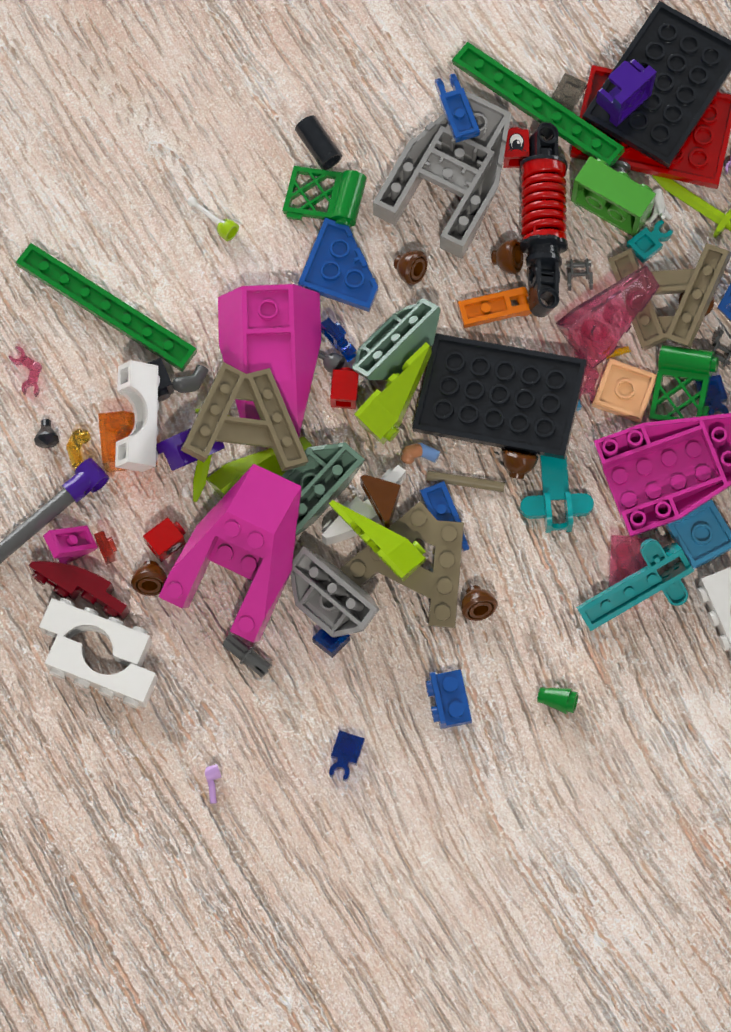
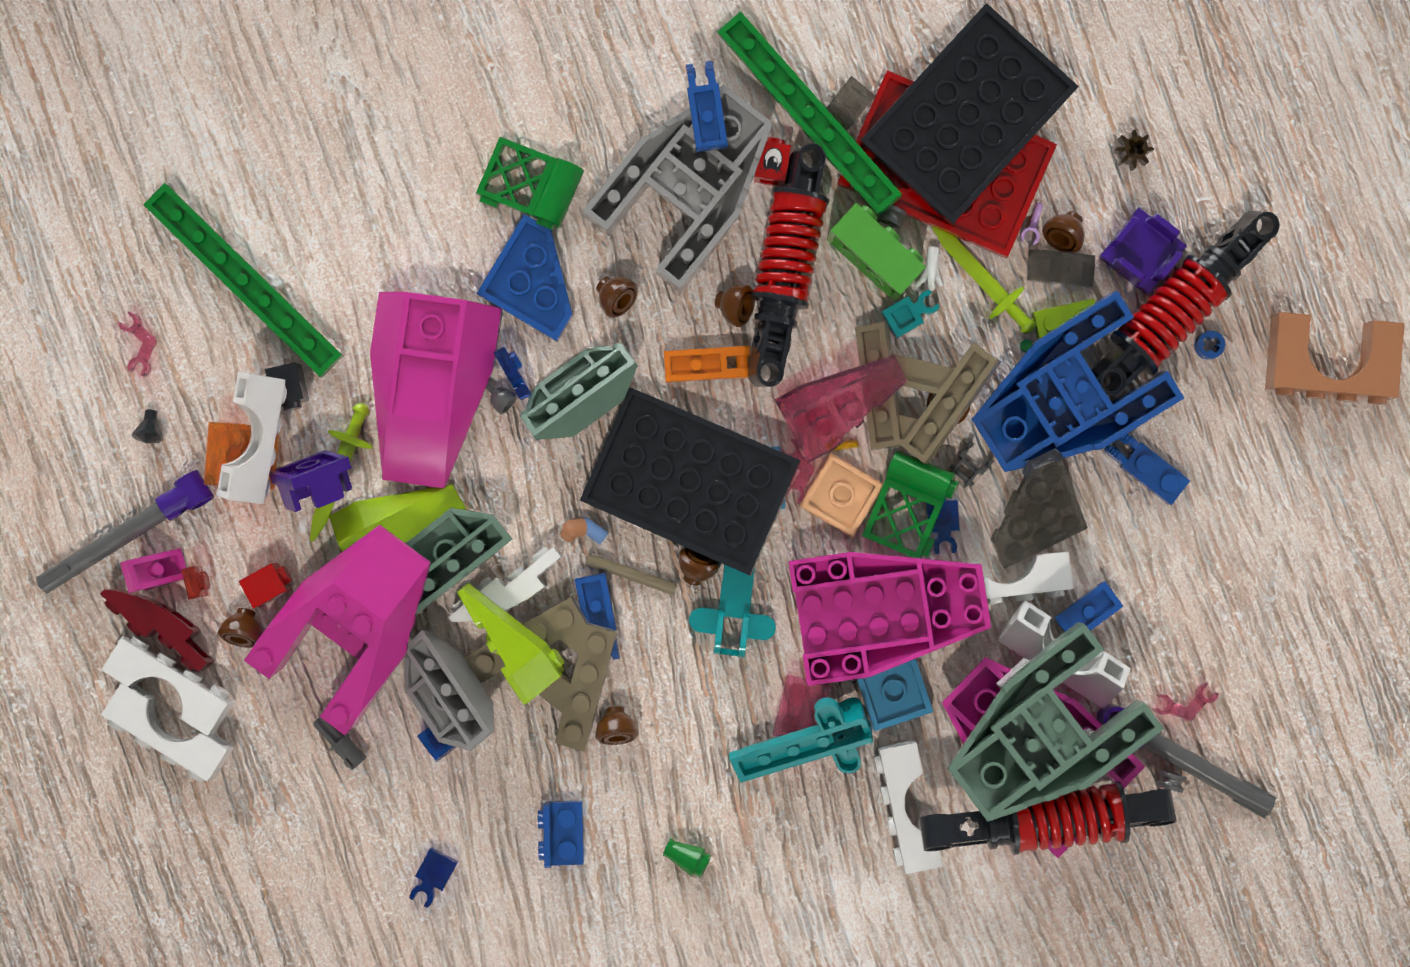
camera: 10 degrees right, 15 degrees up
(74, 444) = (180, 447): clear yellow arm -> none
(190, 383) = (329, 394): dark grey arm -> none
(212, 773) = (276, 872): lavender hand -> none
(226, 228) = (403, 204): hinge -> none
(272, 431) = (336, 471): dark tan plate -> none
(318, 142) = (533, 112): black pin -> none
(344, 388) = (508, 435): red brick -> none
(382, 496) = (524, 590): reddish brown slope -> none
(385, 410) = (554, 475): lime wedge -> none
(589, 275) = (814, 326): dark grey piece -> none
(632, 88) = (917, 124): dark purple panel -> none

